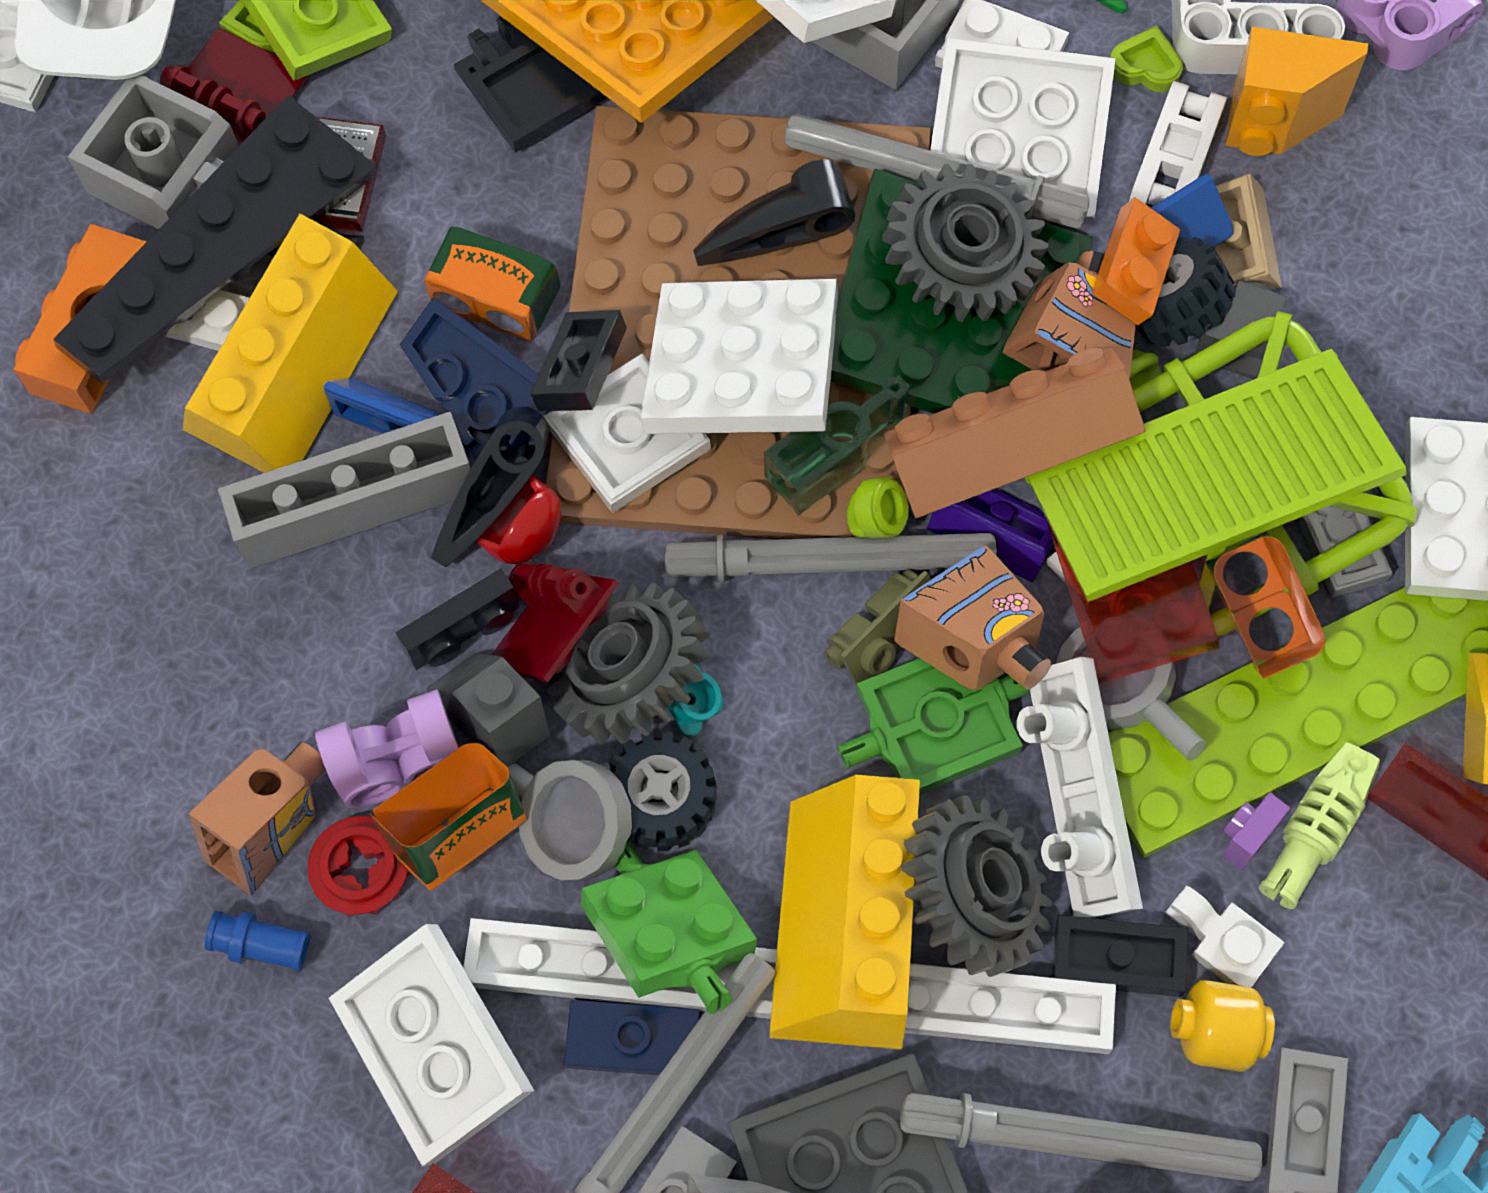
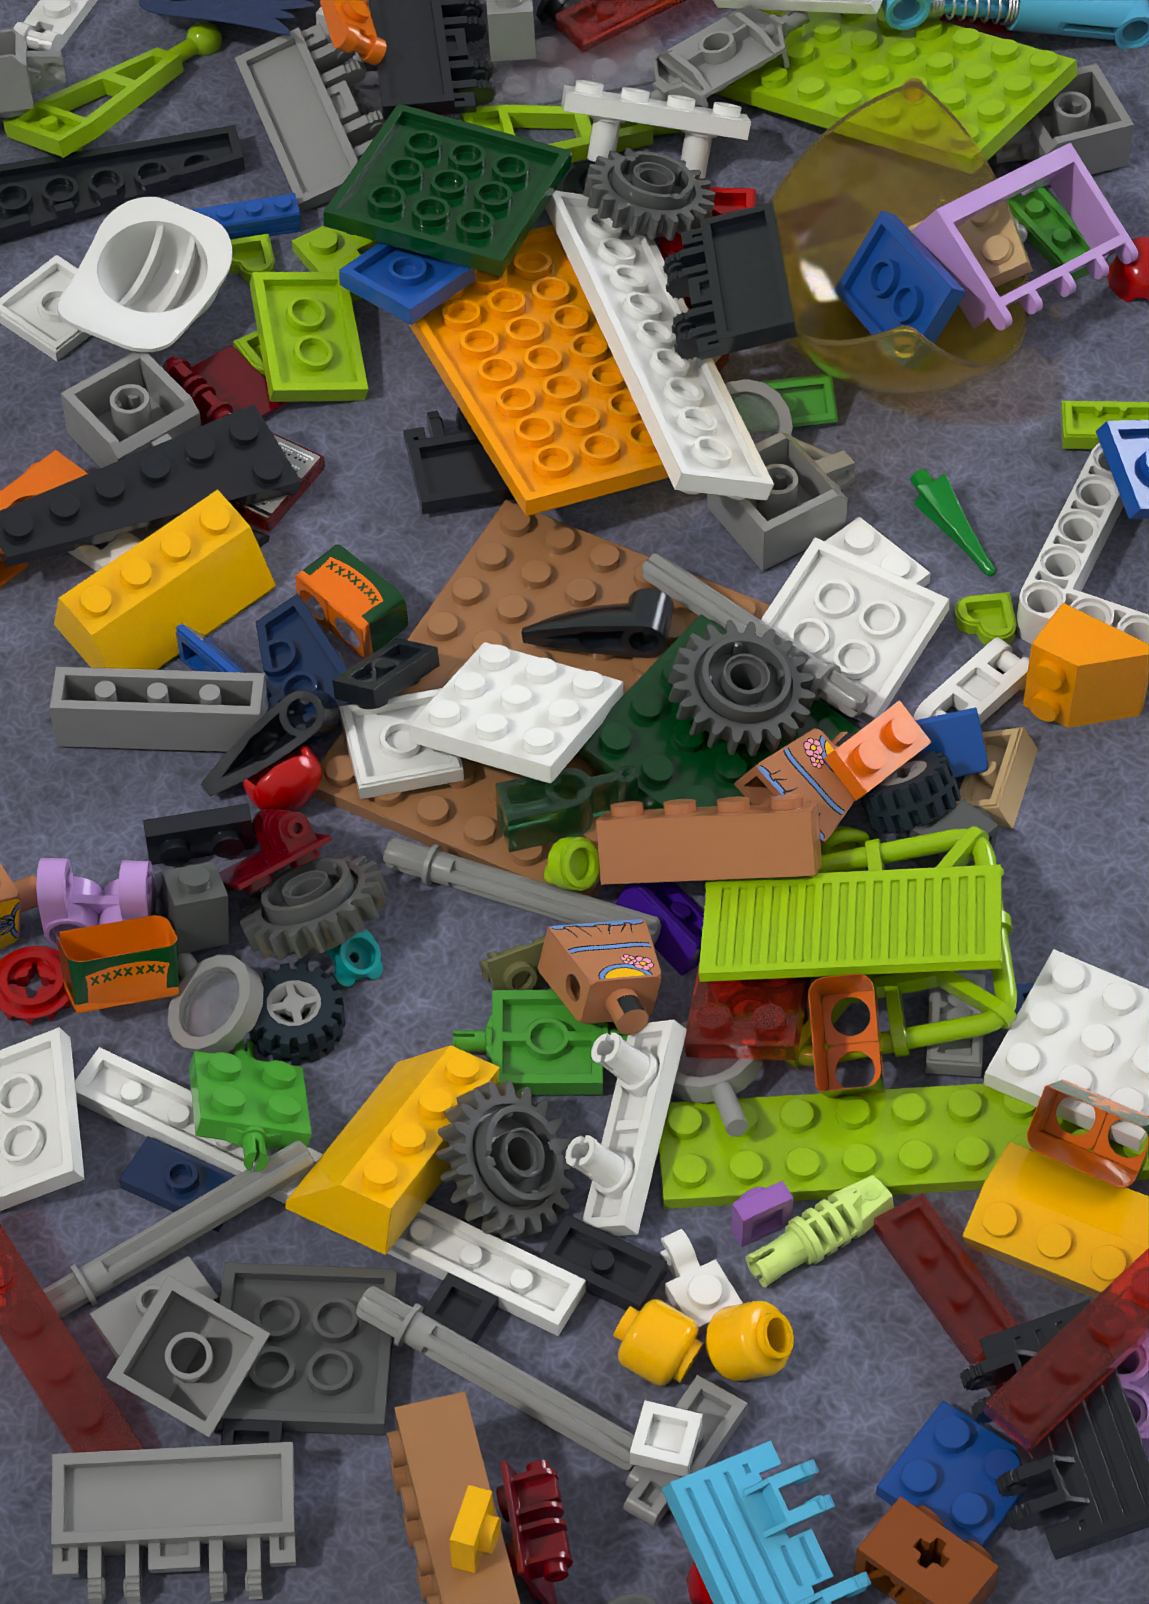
camera: 20 degrees right, 15 degrees down
(1000, 1071) = (462, 1307): none -> black plate
(1297, 1145) = (665, 1438): none -> white plate
(1318, 988) = (749, 1341): none -> yellow head

